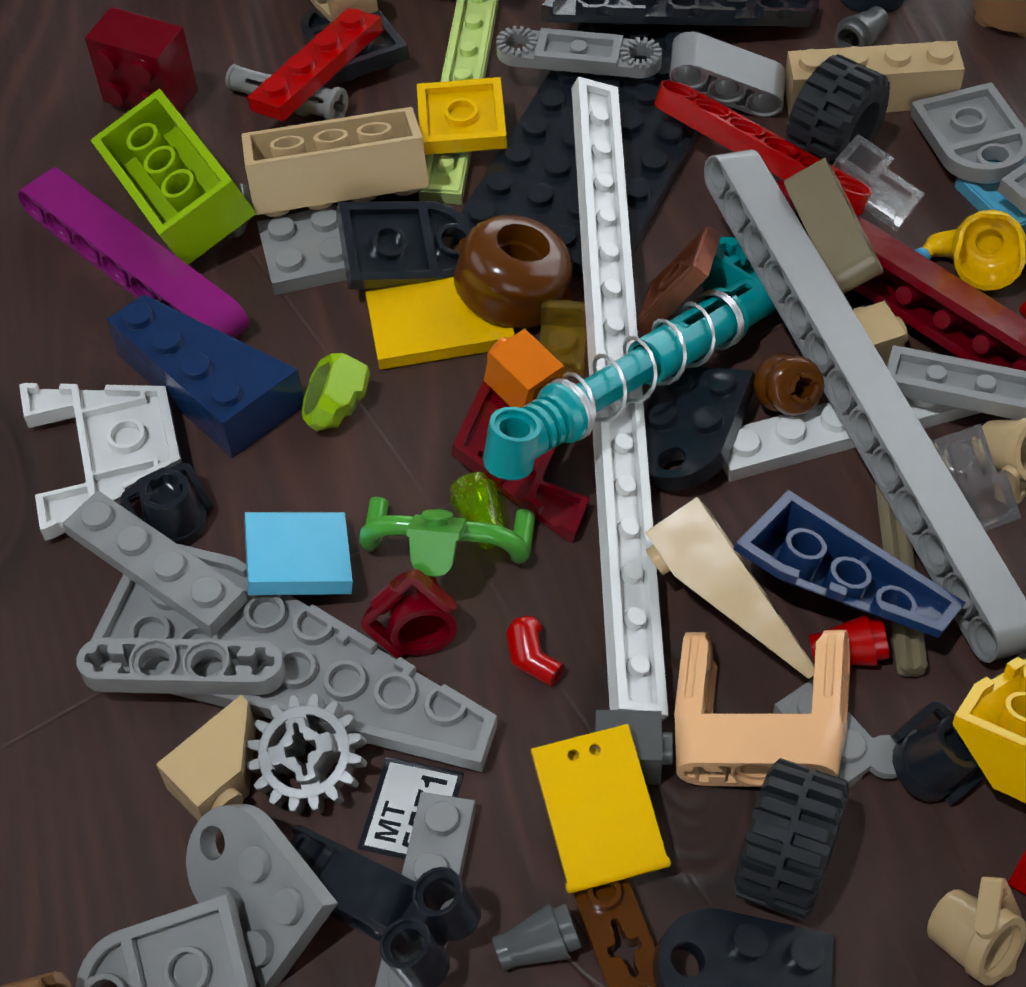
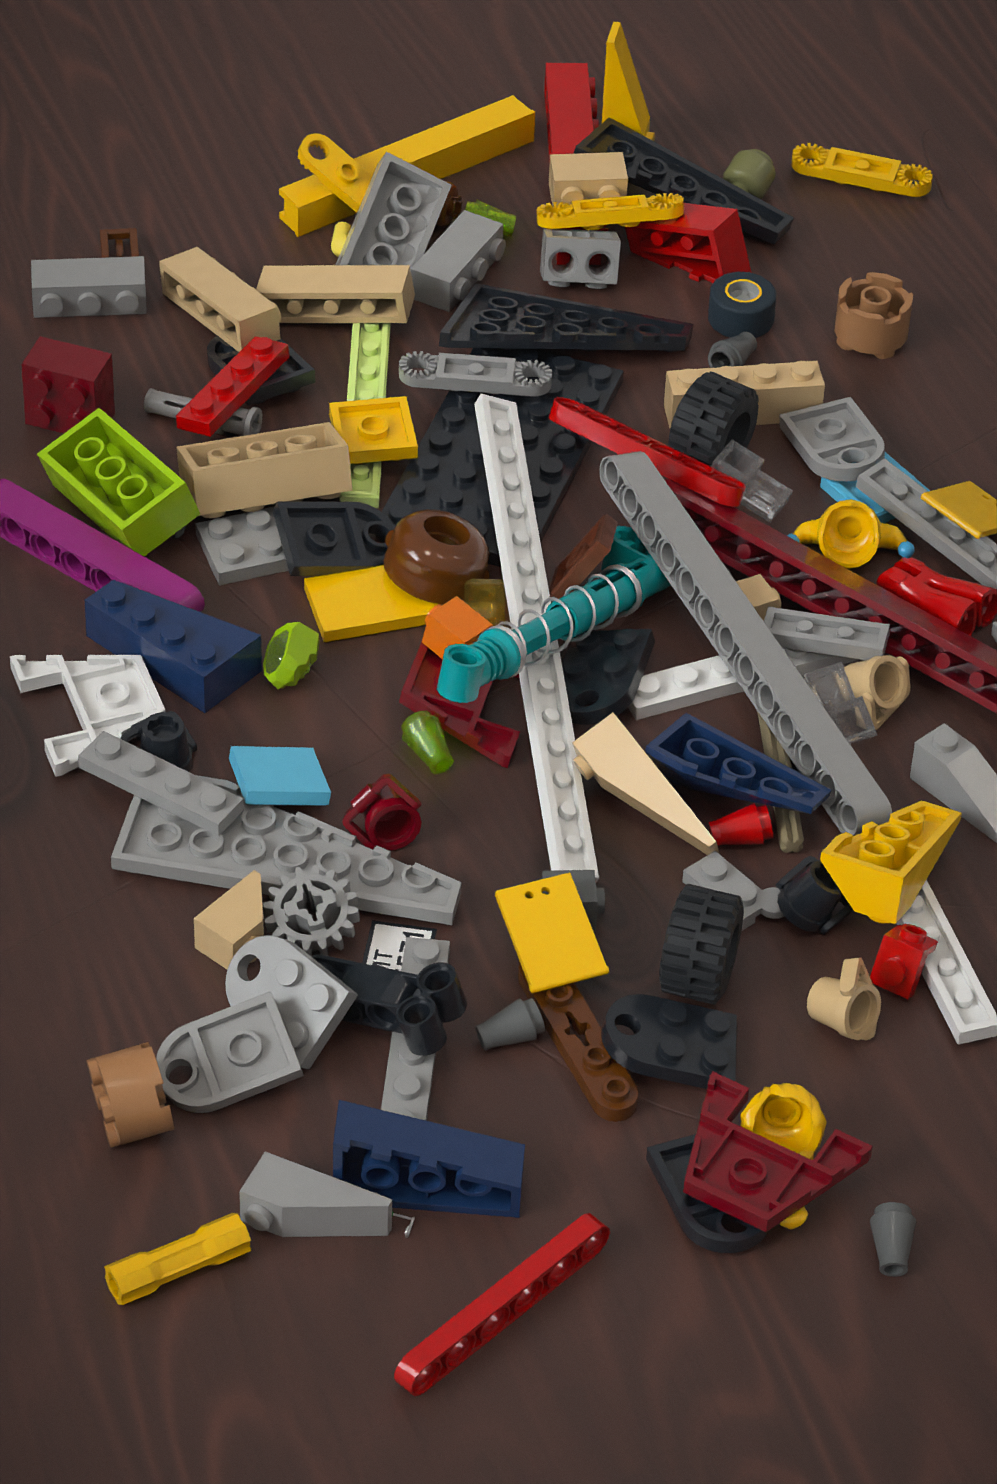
camera: 10 degrees left, 10 degrees down
(180, 675) = (199, 848): light grey beam -> none
(436, 534) = (402, 754): bright green piece -> none
(526, 653) = (479, 844): red arm -> none
(728, 74) = (614, 391): light grey beam -> none
(745, 746) = (648, 895): light nougat connector -> none
(788, 384) = (682, 639): reddish brown piece -> none
(833, 225) = (713, 511): dark tan beam -> none

